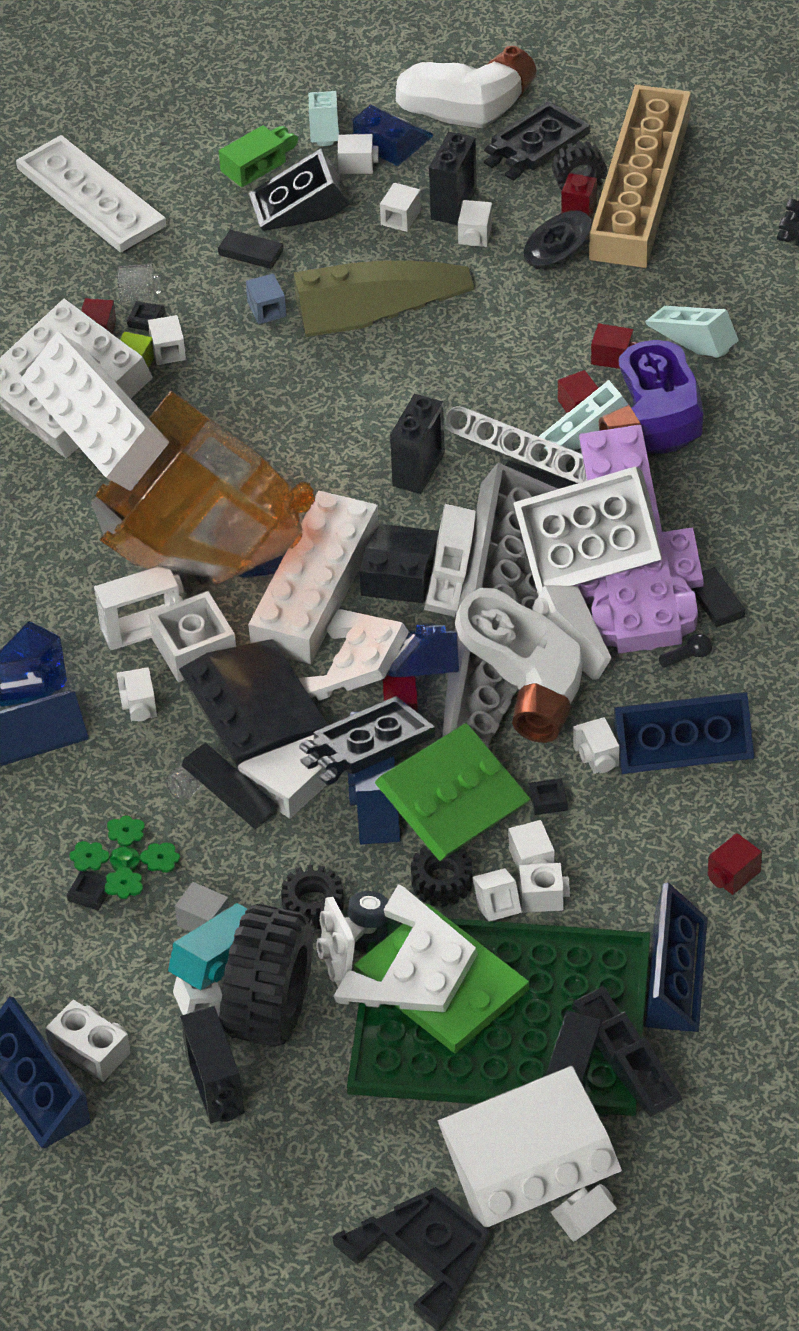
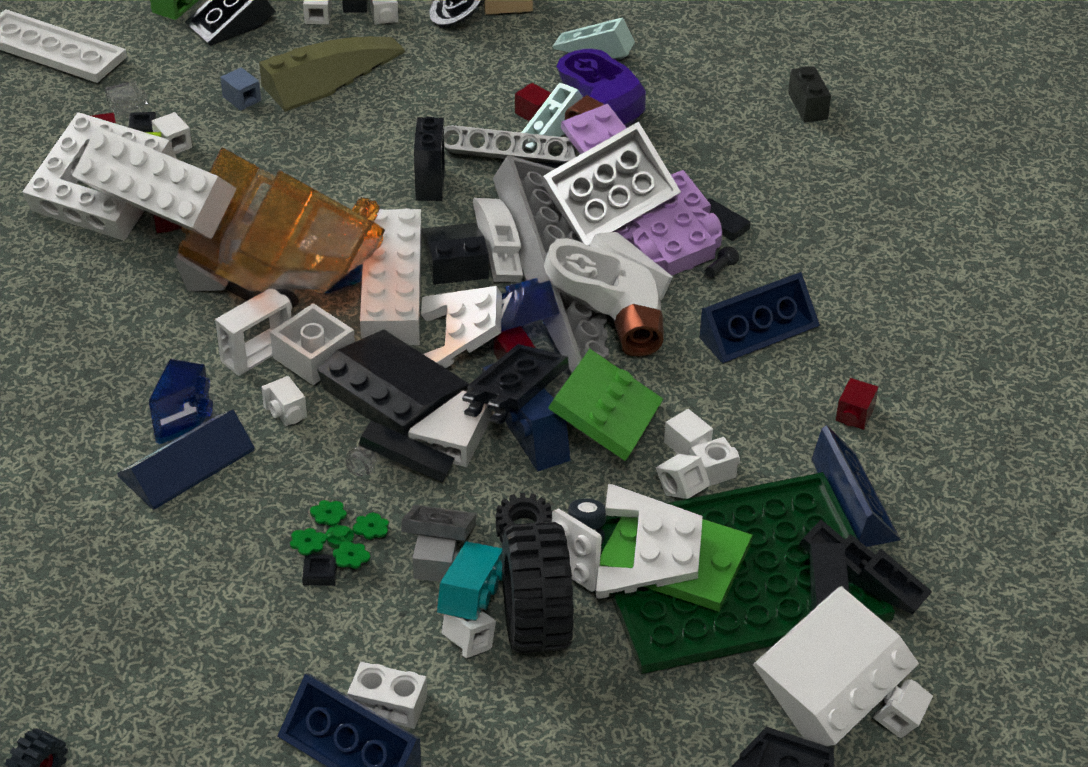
camera: 25 degrees left, 5 degrees down
(212, 1065) = (518, 680): black window -> none
(223, 874) = (439, 522): none -> flat silver tile
(250, 249) = (207, 59): black tile -> none
(441, 889) = (635, 464): black tyre -> none
(548, 796) = (675, 394): black tile -> none
(596, 745) = (695, 344): white brick -> none
(609, 344) = (540, 65): dark red brick -> none

